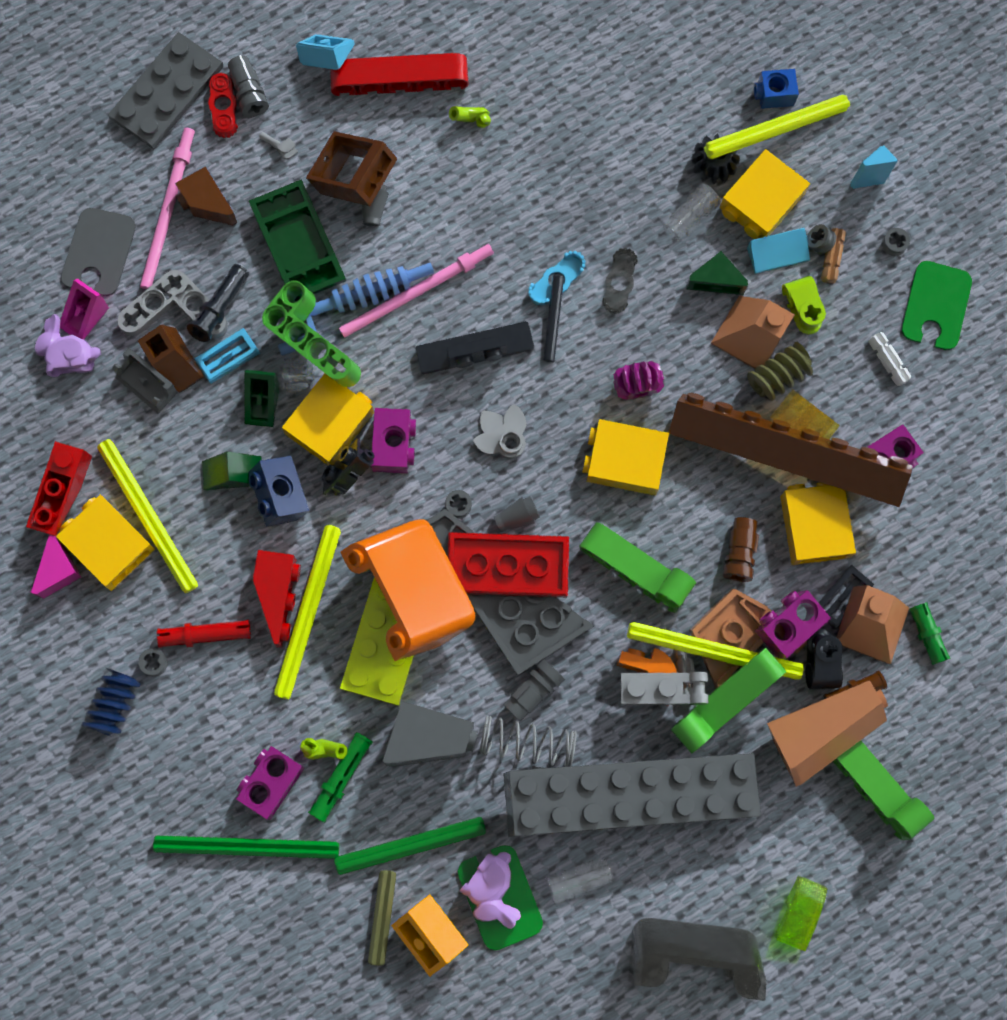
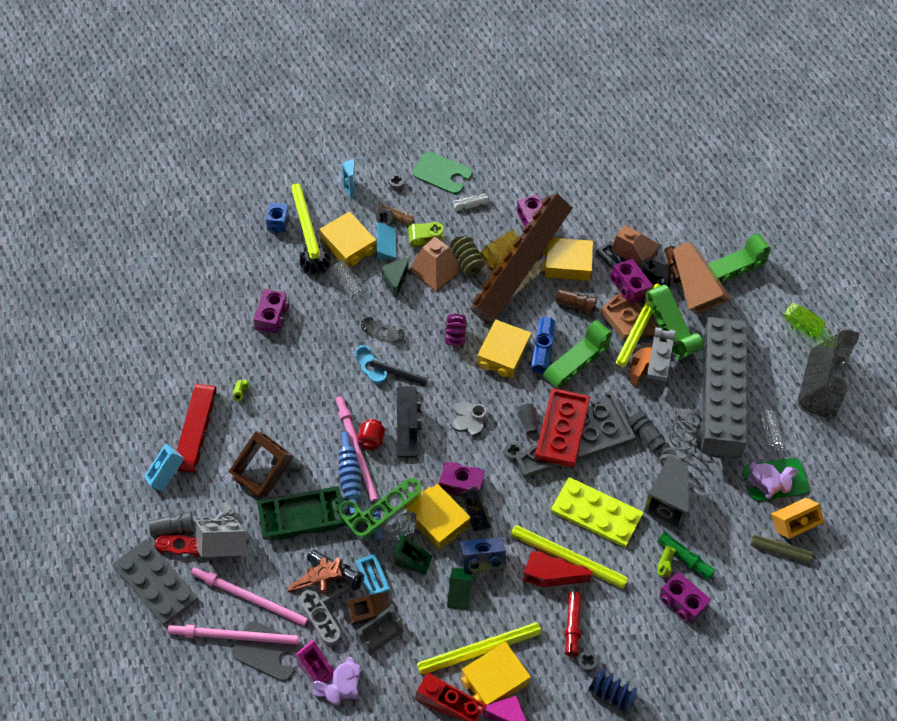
camera: 75 degrees left, 20 degrees down
(105, 153) = (191, 631): none -> bright pink bar
(202, 286) = (320, 575): none -> piece
(204, 198) = (251, 566): reddish brown slope -> none
(235, 146) = (219, 537): none -> light grey slope
(246, 847) = (724, 624): green axle -> none
(410, 845) = (737, 524): green axle -> none
(416, 585) = (565, 472): orange windscreen -> none
(437, 303) = (371, 434): none -> red head
(609, 114) = (267, 311): none -> magenta brick
(668, 513) = (542, 352): none -> blue piece
(929, 633) = (646, 221): green pin -> none

